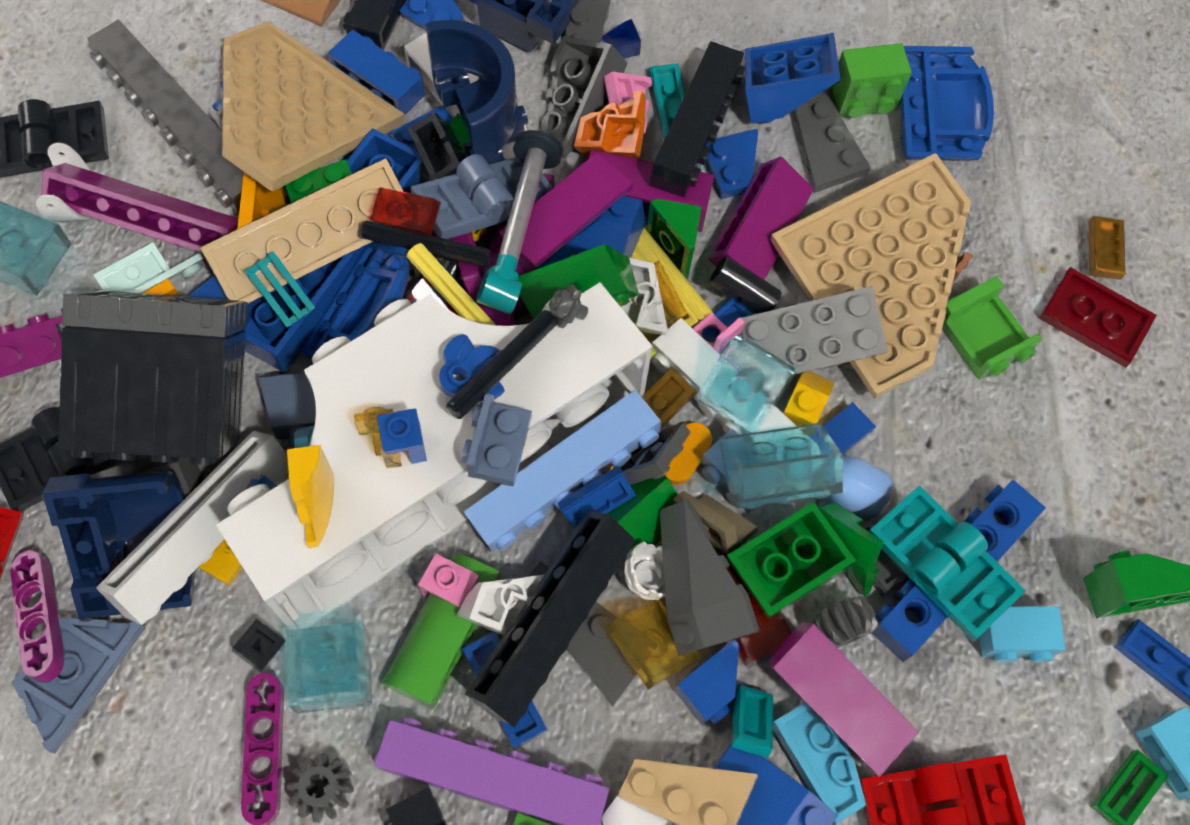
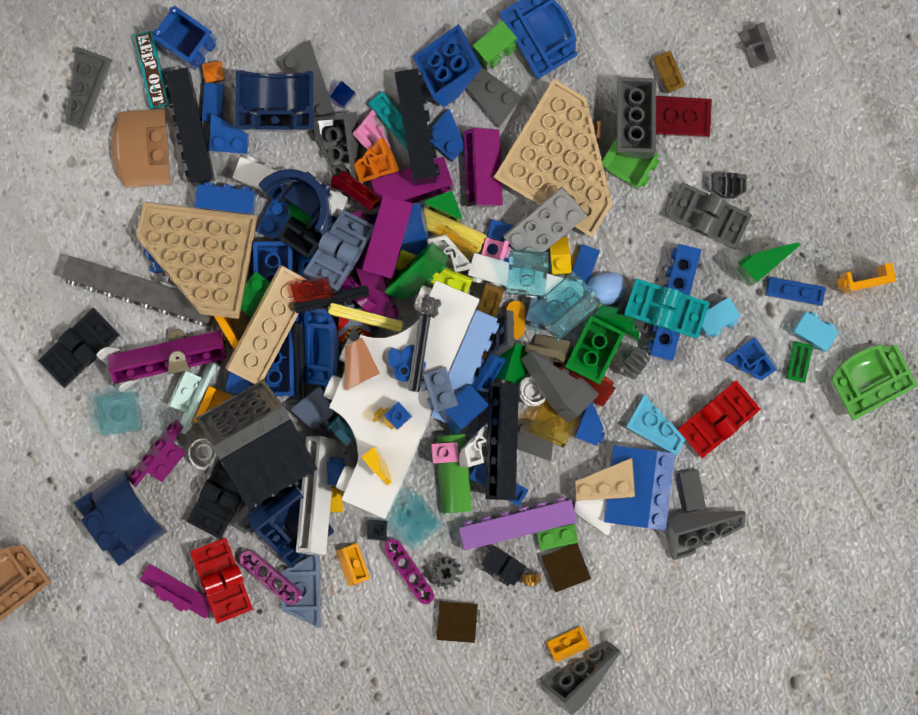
camera: 25 degrees left, 20 degrees up
(142, 218) = (180, 364): none -> dark tan piece
(183, 680) = (352, 564): none -> light orange slope
(263, 266) = (290, 369): teal tile -> none
(321, 316) = (299, 362): none -> black axle
(395, 329) = (358, 364): none -> nougat slope
(500, 284) = (383, 302): piece -> none
(521, 529) = (469, 408): none -> blue slope
(571, 155) = (356, 190): none -> dark red hinge
(741, 282) = (495, 214): black pin -> none
(752, 721) = (617, 432): teal tile -> none
(843, 697) = (650, 400): magenta brick -> none
(1033, 270) = (636, 117): none -> dark grey slope
(1049, 738) = (752, 359): none -> blue slope
(1079, 472) = (709, 215): none -> dark grey plate
(1131, 443) = (728, 184): none -> black piece

